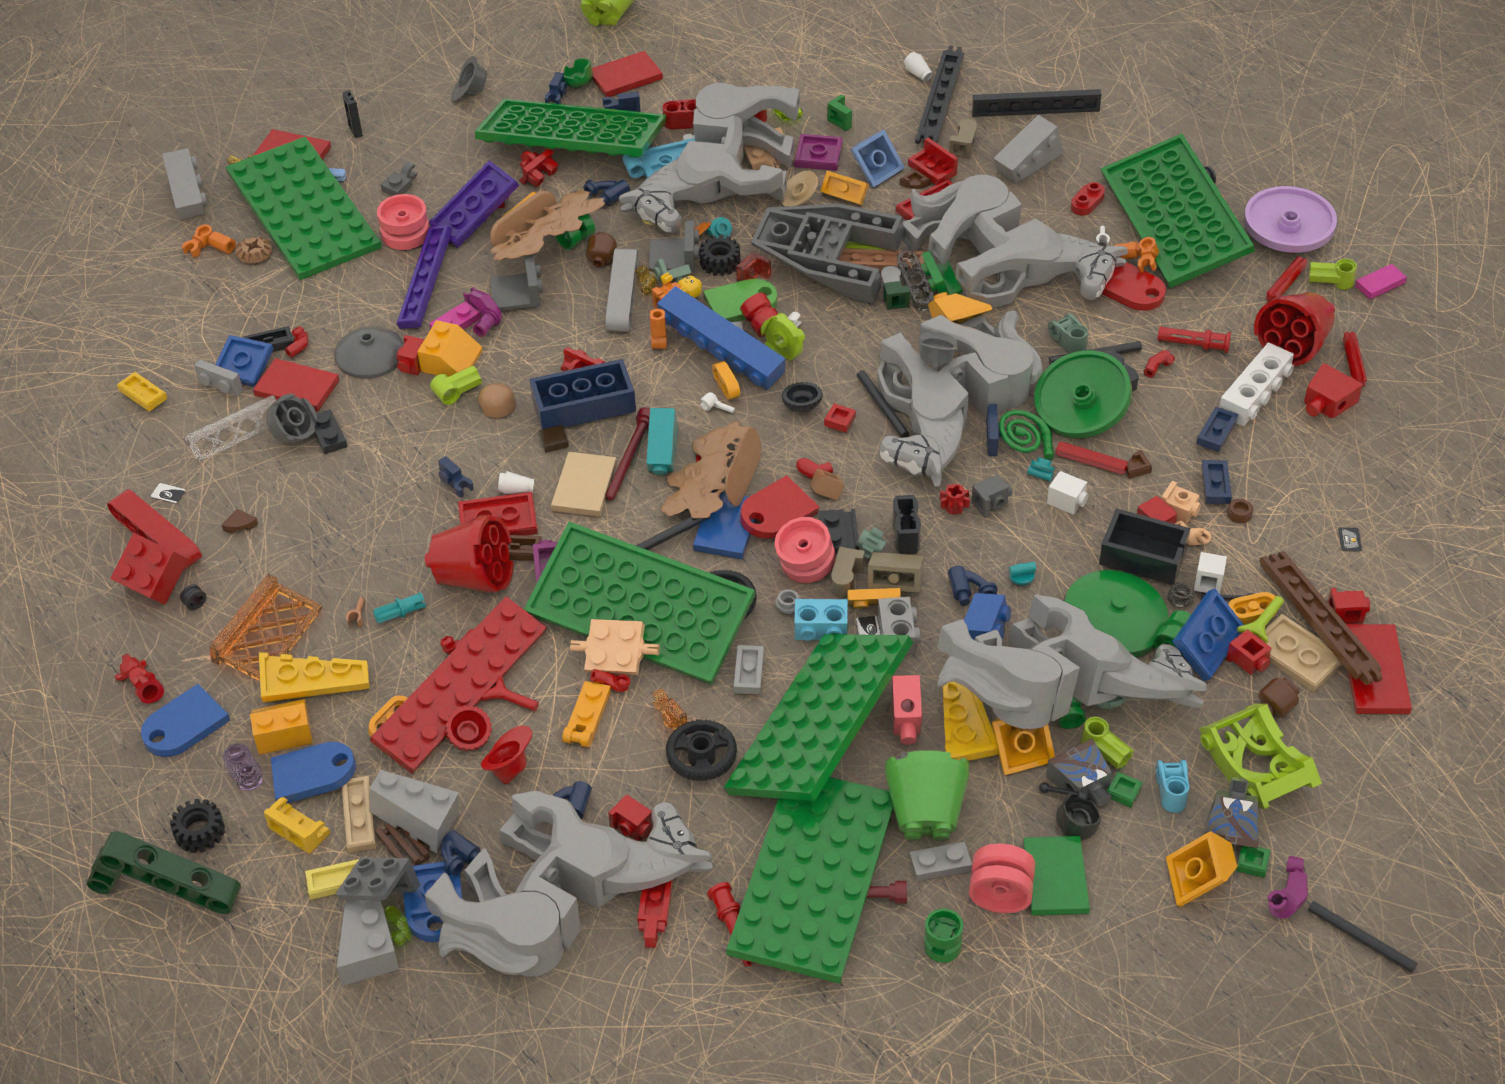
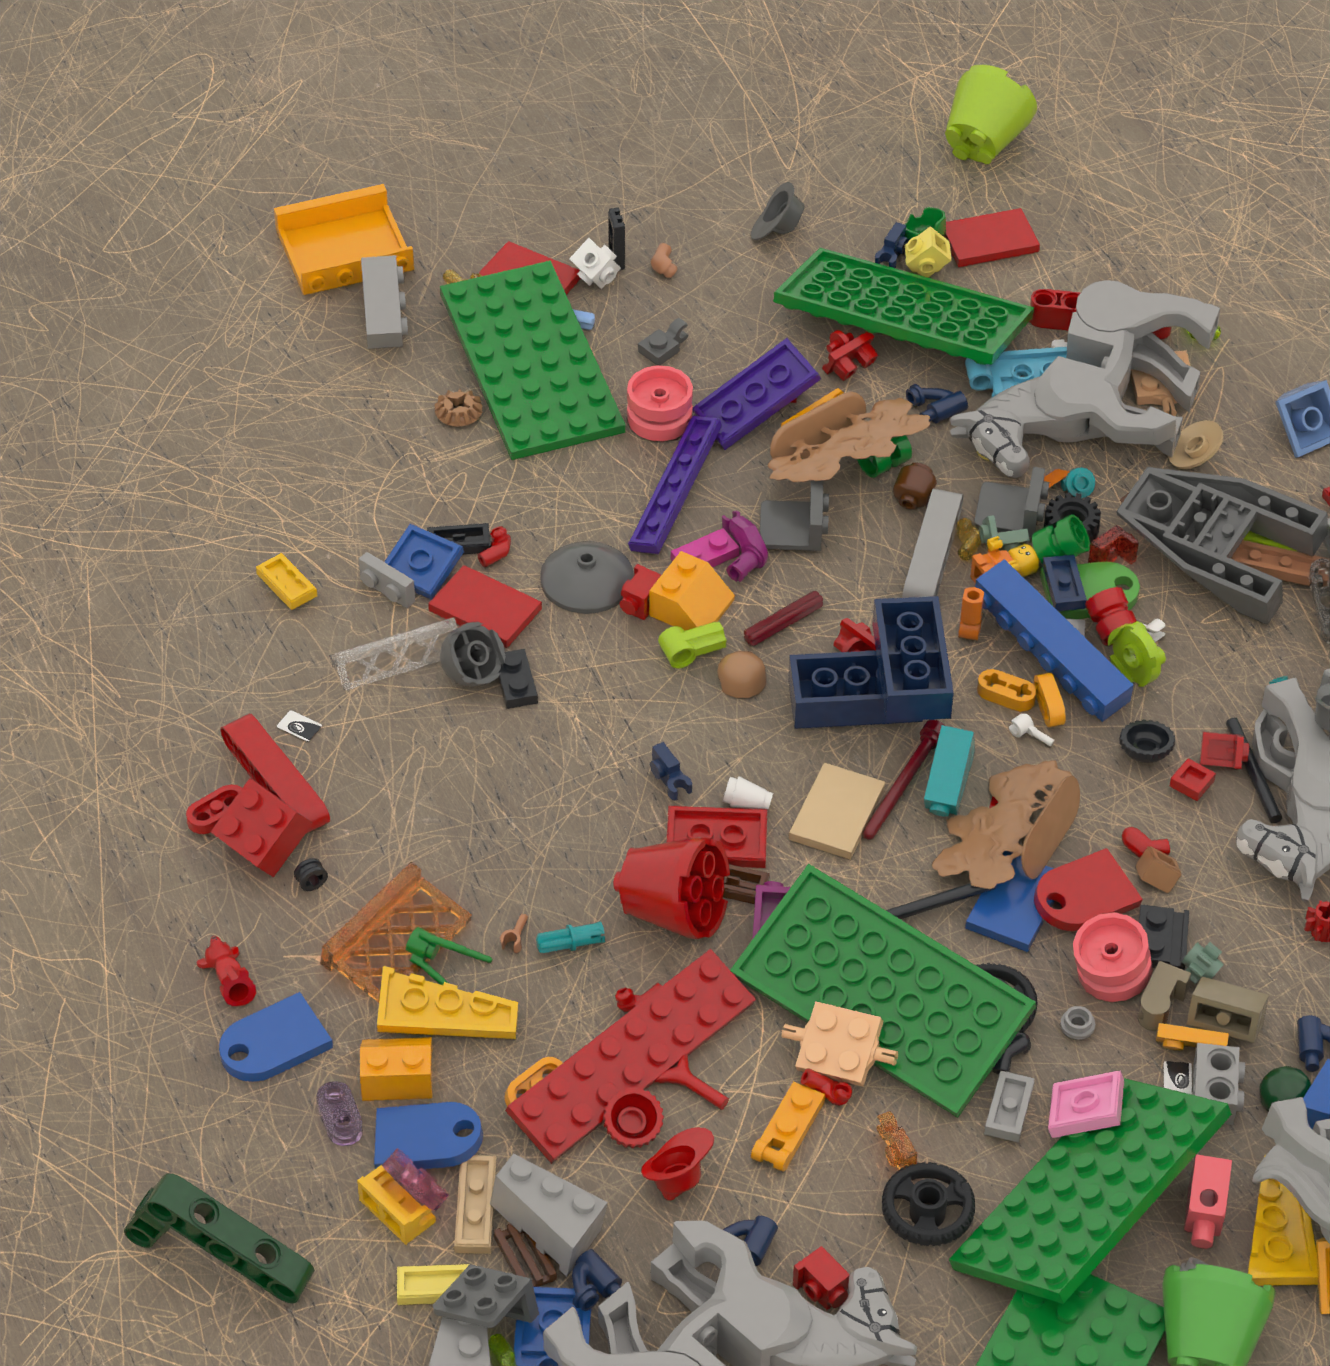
camera: 10 degrees right, 0 degrees up
(103, 567) = (208, 810): none -> red plate
(136, 145) = (334, 232): none -> light orange panel
(193, 813) = (276, 1197): black tyre -> none
(204, 237) = (399, 379): orange bar -> none
(239, 520) = (384, 781): reddish brown tile -> none
(289, 631) = (426, 945): none -> green plant
(309, 803) = (417, 1181): none -> clear pink plate
(339, 134) = (595, 263): none -> white brick
(389, 127) = (662, 263): none -> nougat arm
(520, 356) = (783, 618): none -> dark red axle
(553, 438) = (807, 740): dark brown tile -> none
(582, 89) = (927, 252): none -> light yellow brick
(620, 365) = (912, 659): none -> dark blue brick
(625, 101) = (982, 280): dark blue plate -> none
(693, 379) = (1006, 690): none -> light orange beam
(714, 269) = (1066, 538): none -> green wheel
(722, 297) = (1064, 582): none -> dark blue plate
(749, 623) = (1020, 1044): none -> black arm
(805, 657) = (1086, 1104): none -> bright pink tile
(818, 152) = (1232, 394): magenta tile -> none
(819, 617) = (1117, 1052): medium azure brick -> none
(839, 114) = (1270, 344): green bracket -> none
(844, 187) = (1257, 452): light orange plate -> none
(858, 393) = (1223, 750): none -> red bracket
(893, 292) = (1296, 611): dark green leg -> none
(906, 524) = (1254, 945): black brick -> none
(944, 615) = (1283, 1084): none -> dark green hair

